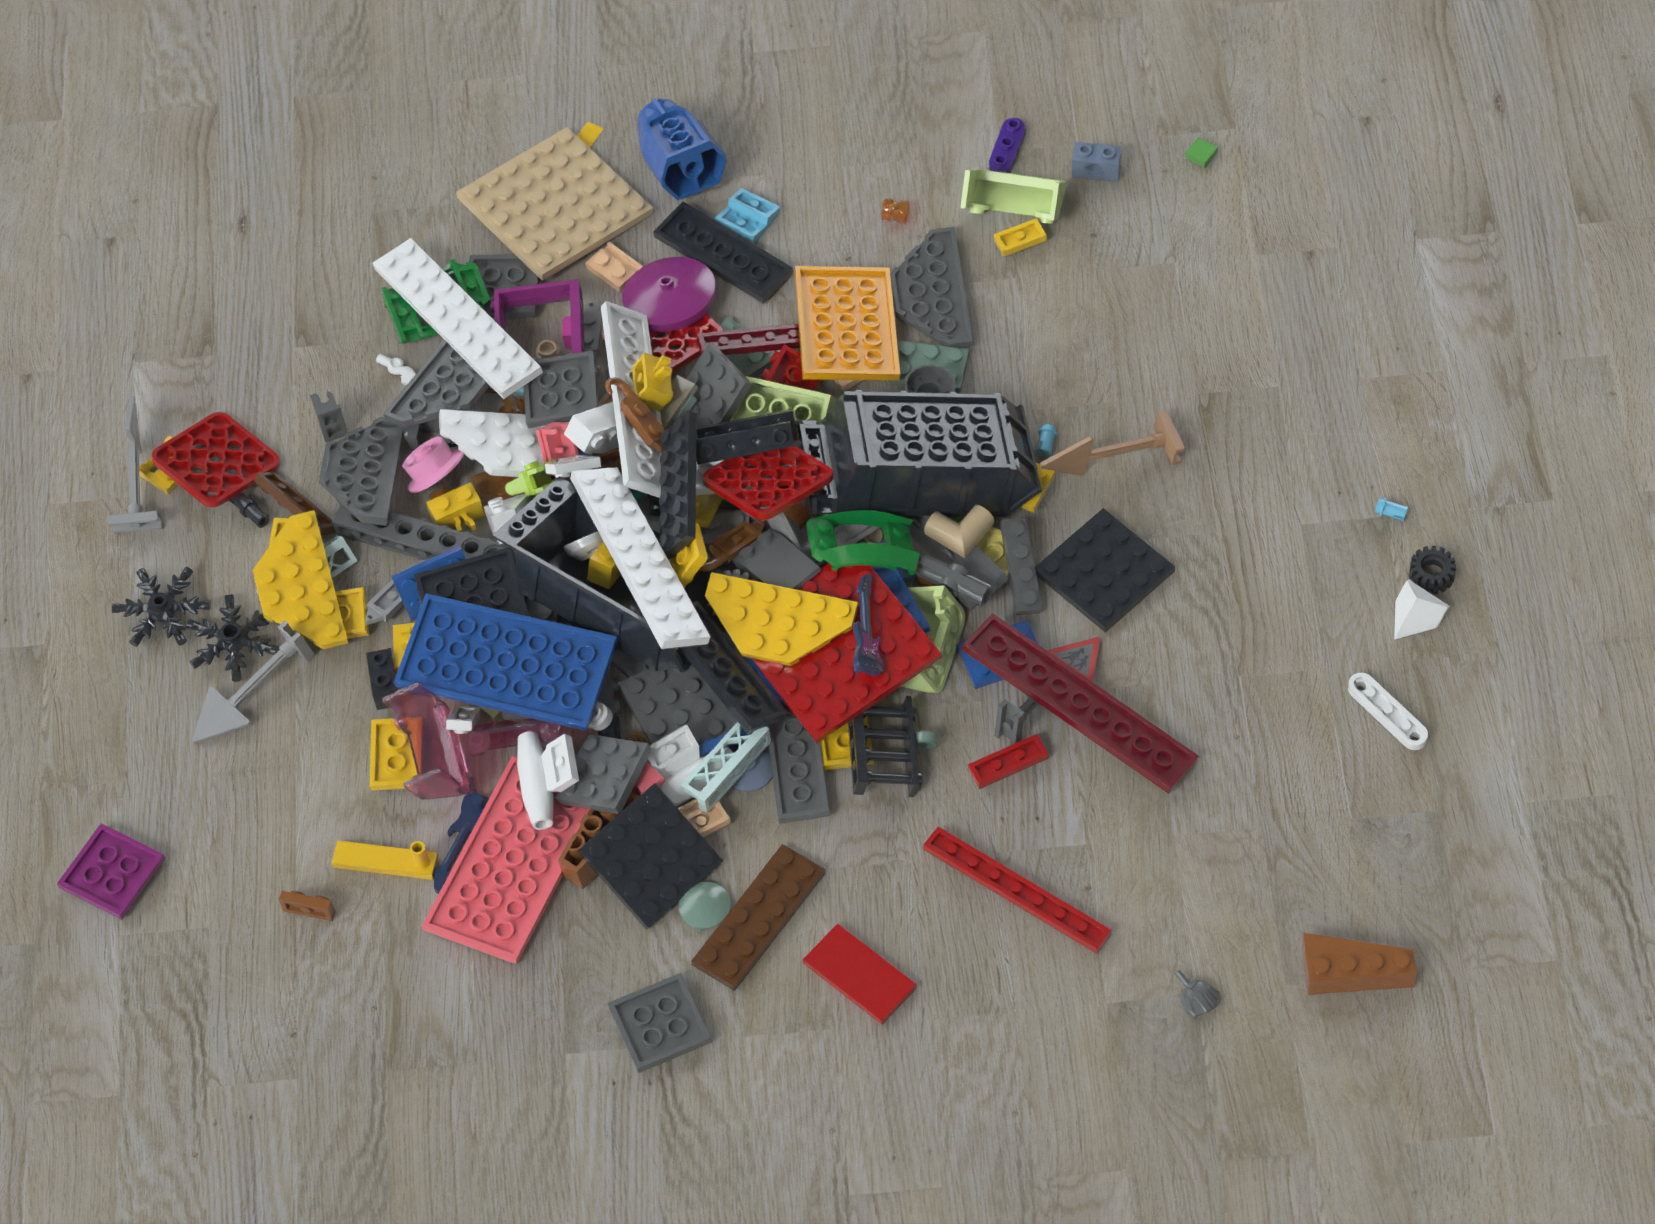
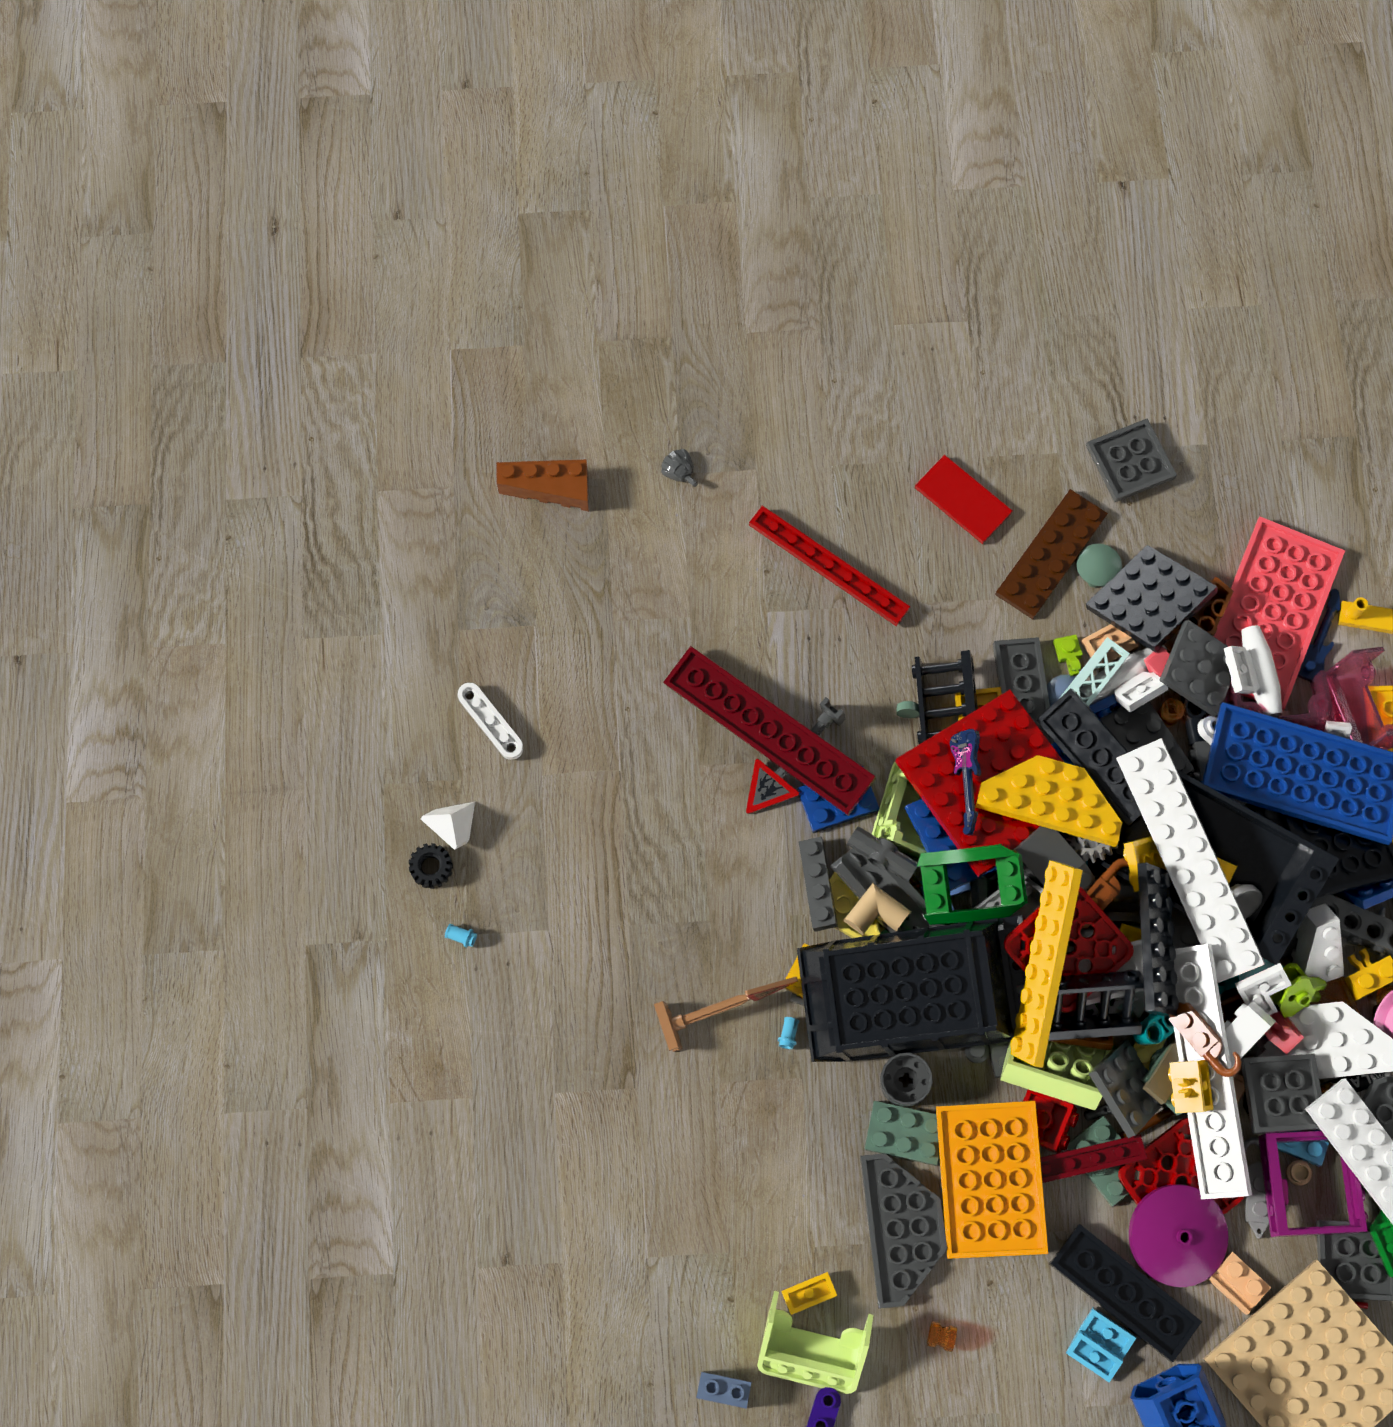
camera: 175 degrees right, 15 degrees up
(744, 811) = (1069, 651): none -> lime plate
(793, 446) = (1046, 963): none -> yellow plate
(1008, 761) = (834, 686): red plate -> none
(1104, 570) = (738, 885): black plate -> none
(1201, 152) = (609, 1404): bright green tile -> none

